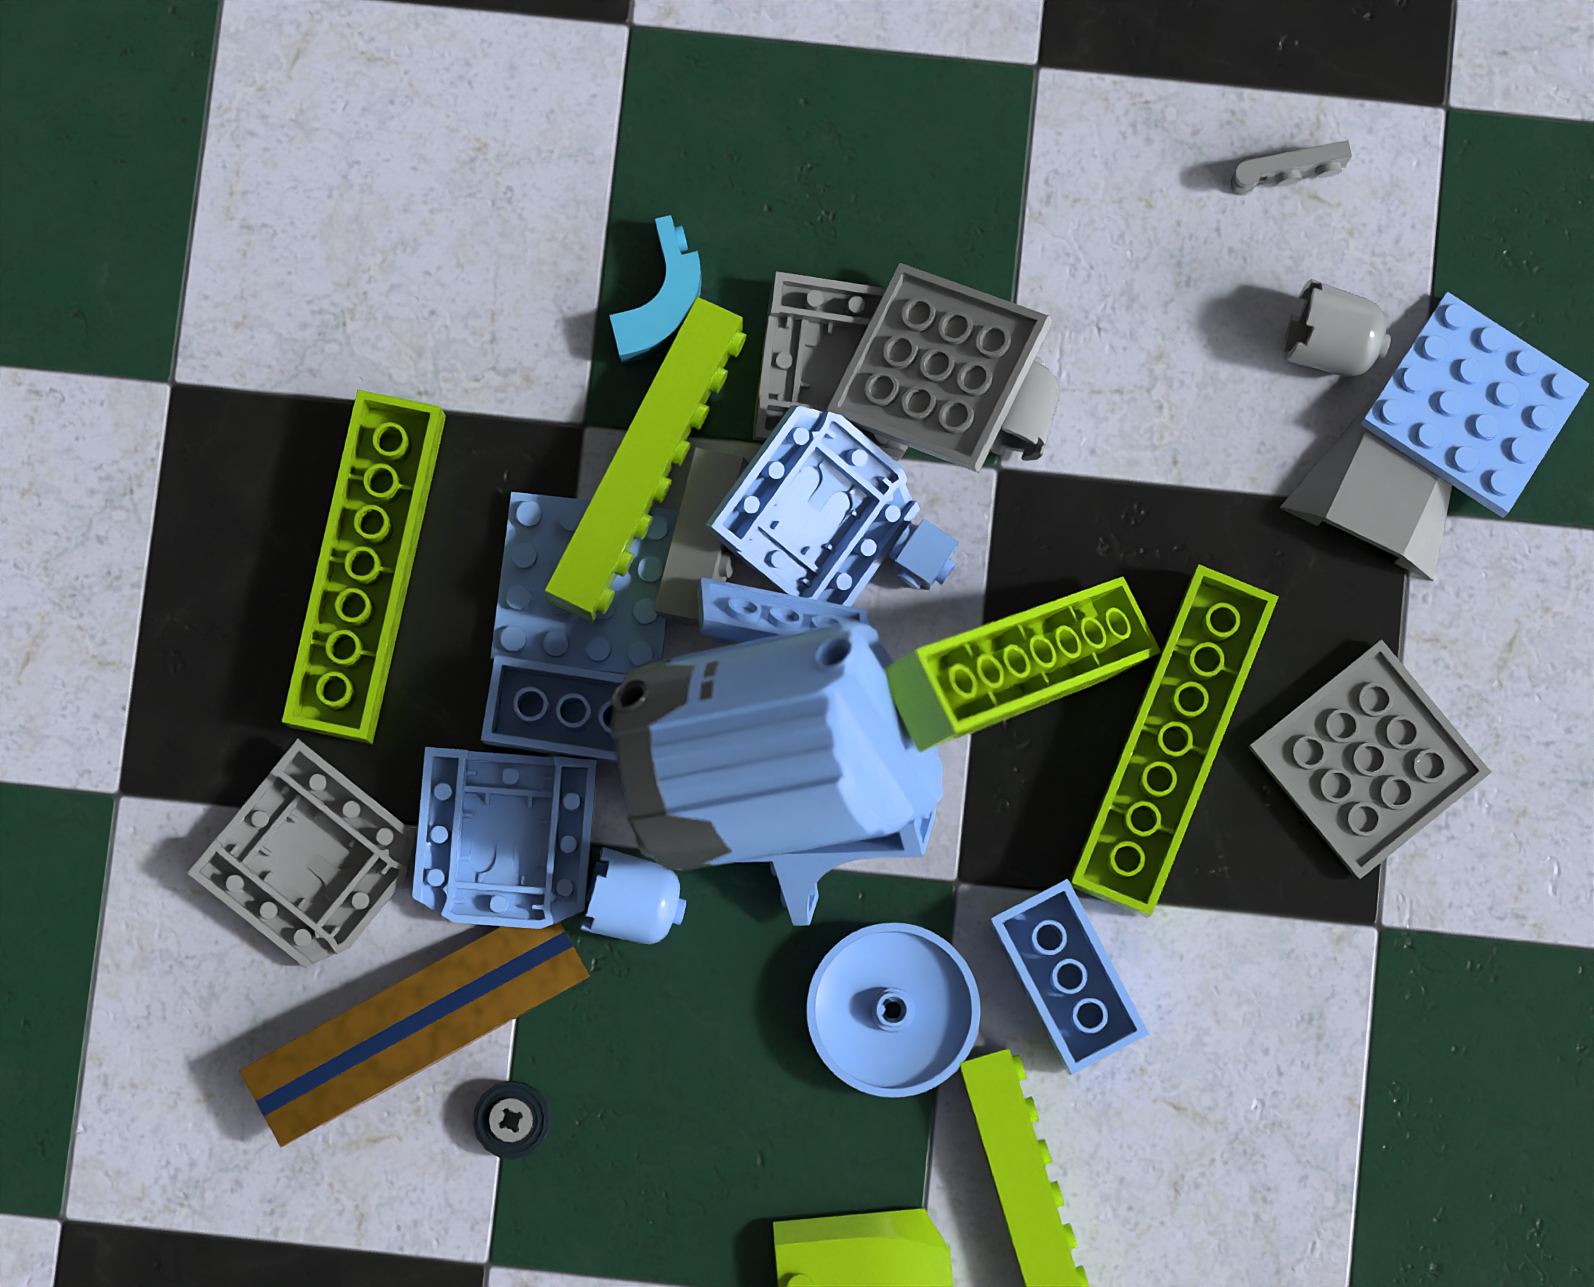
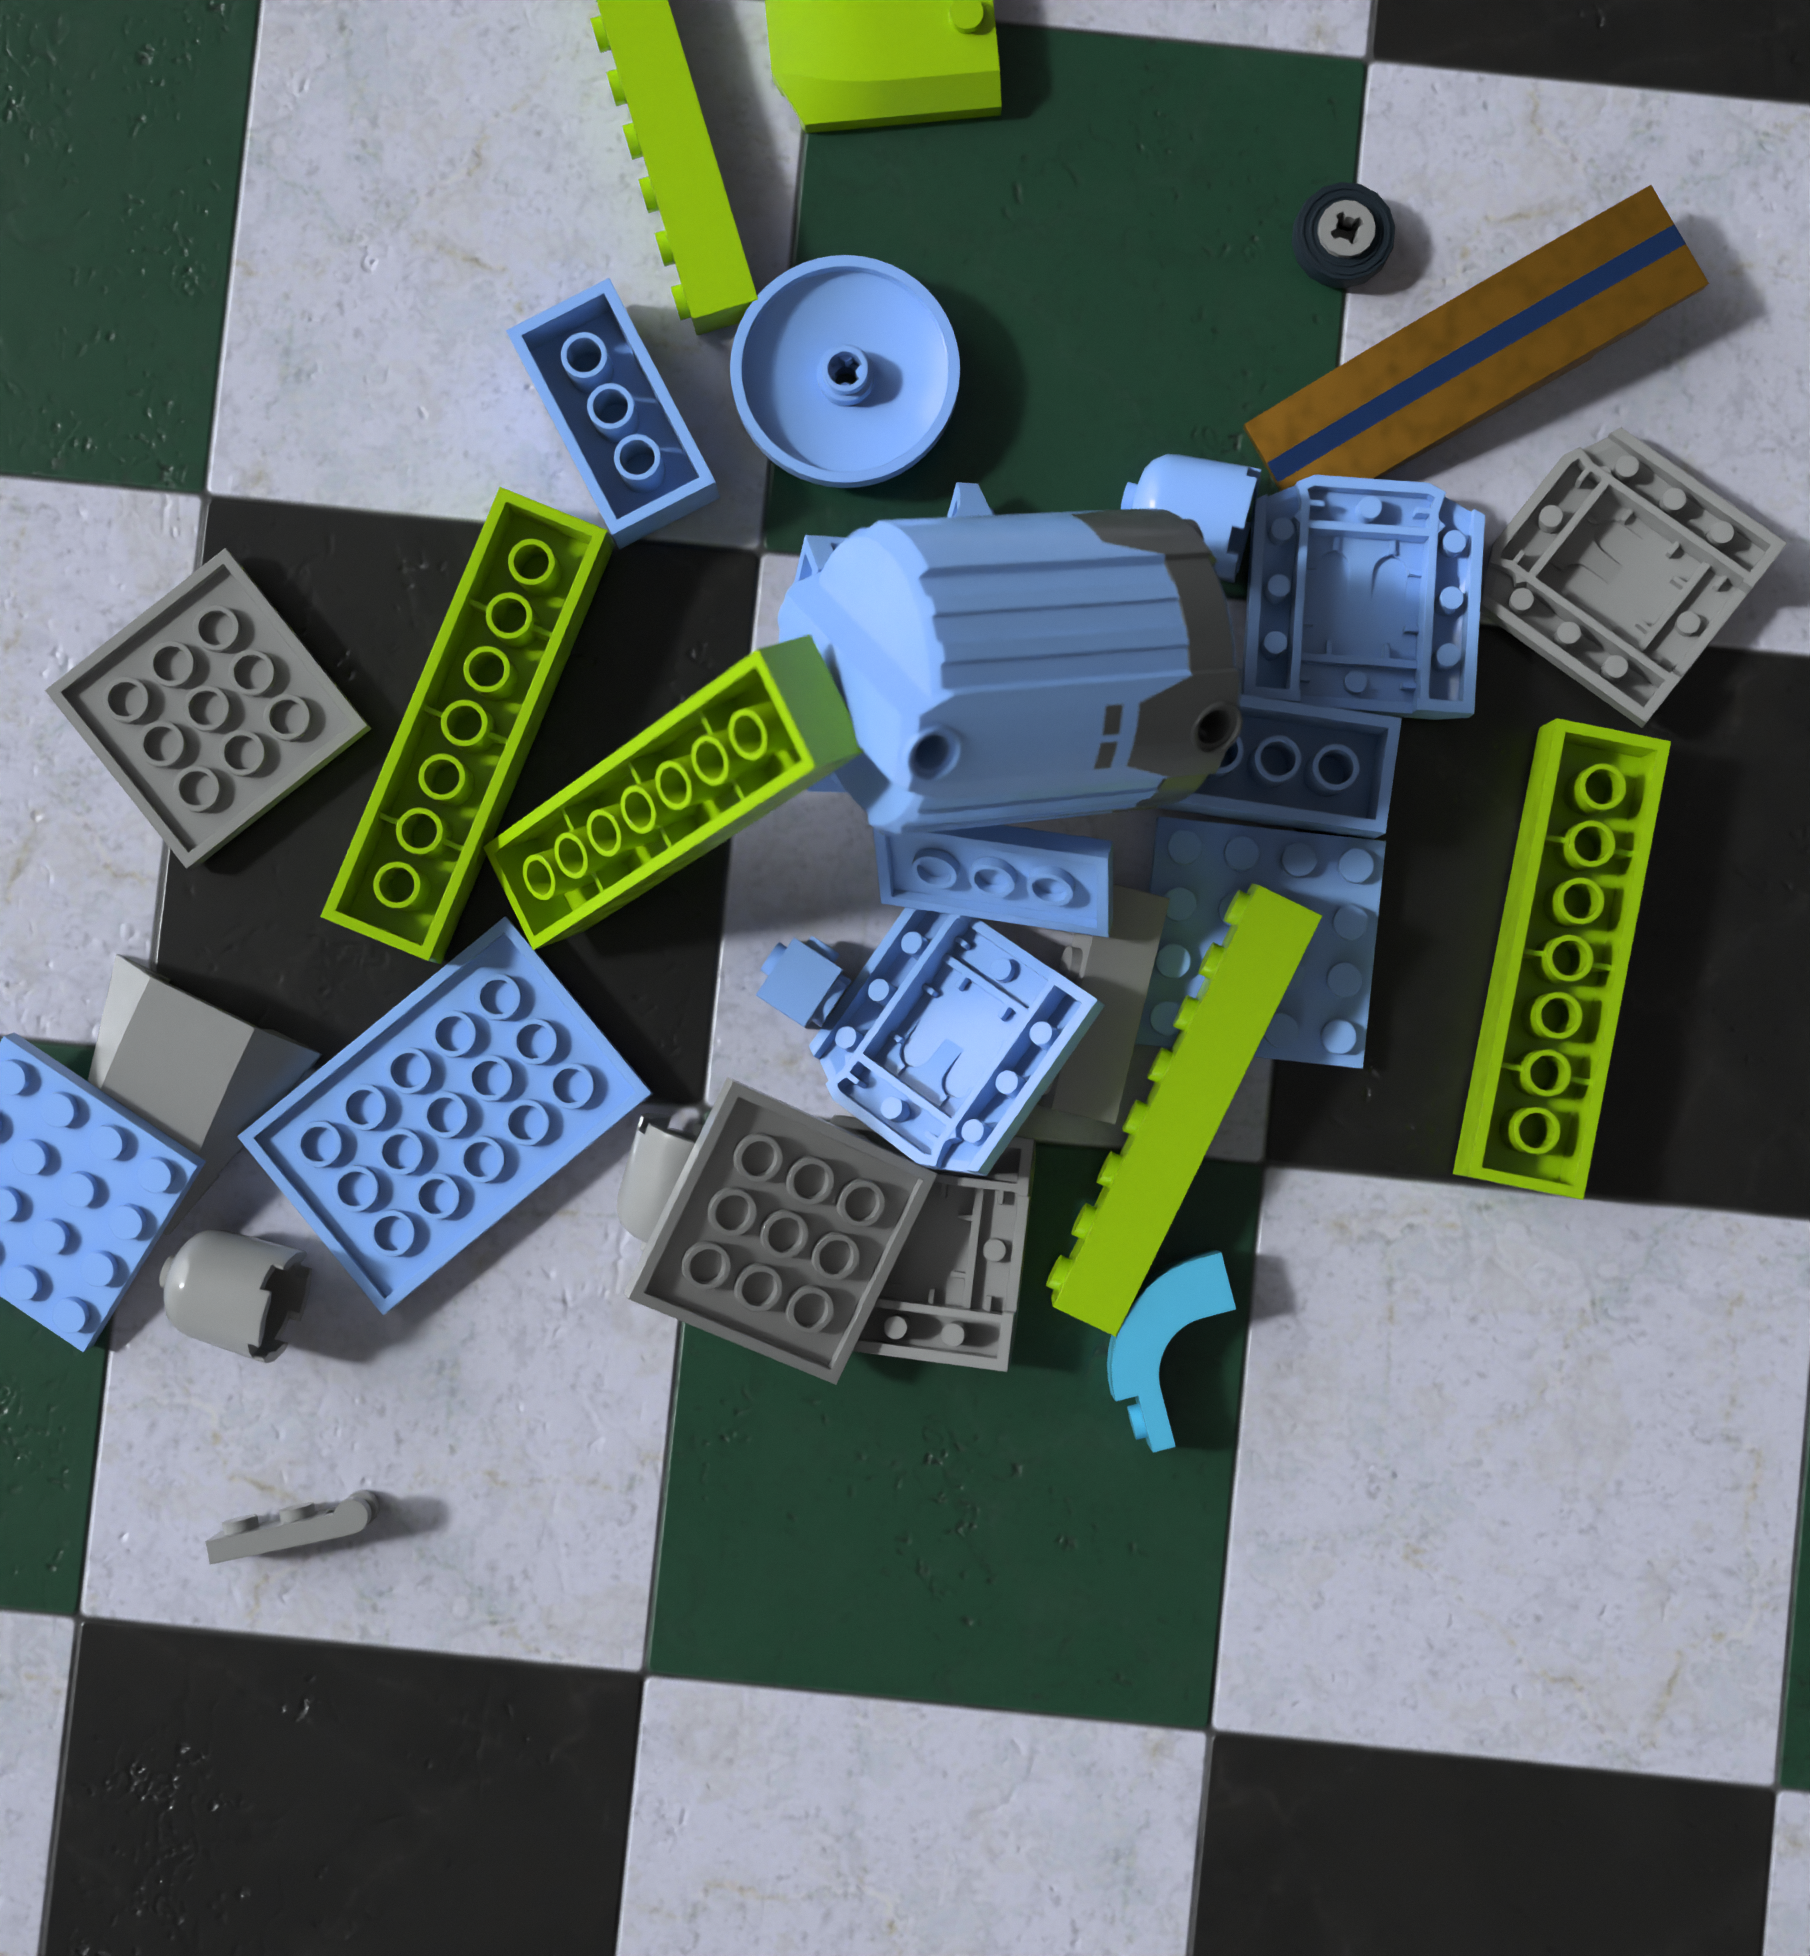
camera: 175 degrees right, 5 degrees up
(1186, 460) = (445, 1115): none -> light blue plate

